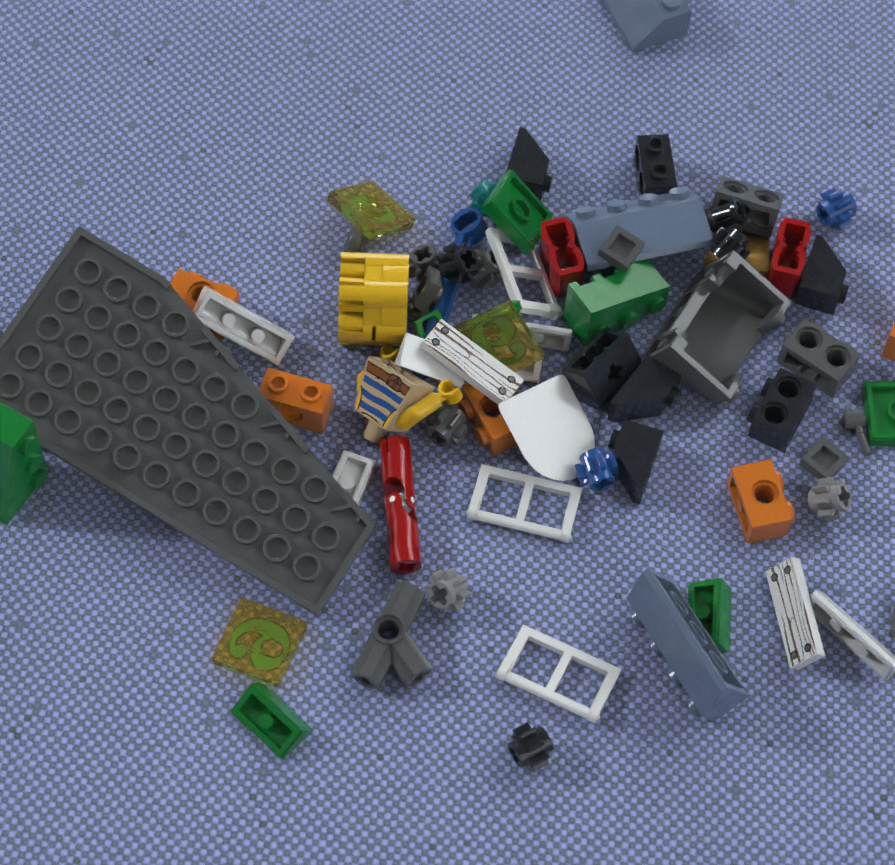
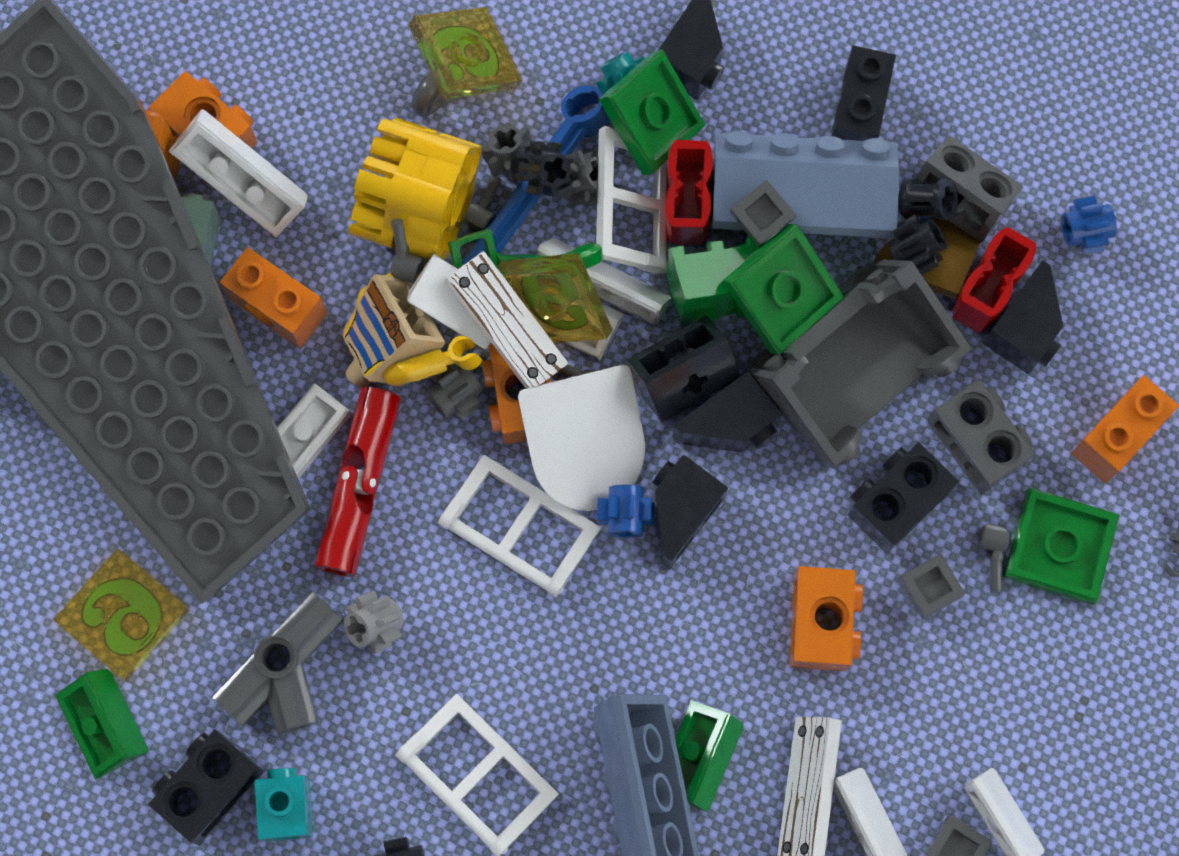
camera: 20 degrees right, 15 degrees up
(373, 736) = (214, 796): none -> black brick
(386, 347) = (404, 264): none -> dark grey hand
(428, 289) = (494, 192): dark grey plate -> none
(430, 732) = (283, 806): none -> teal brick
(652, 294) = (783, 289): none -> green tile
(829, 498) = (916, 645): light grey gear -> none

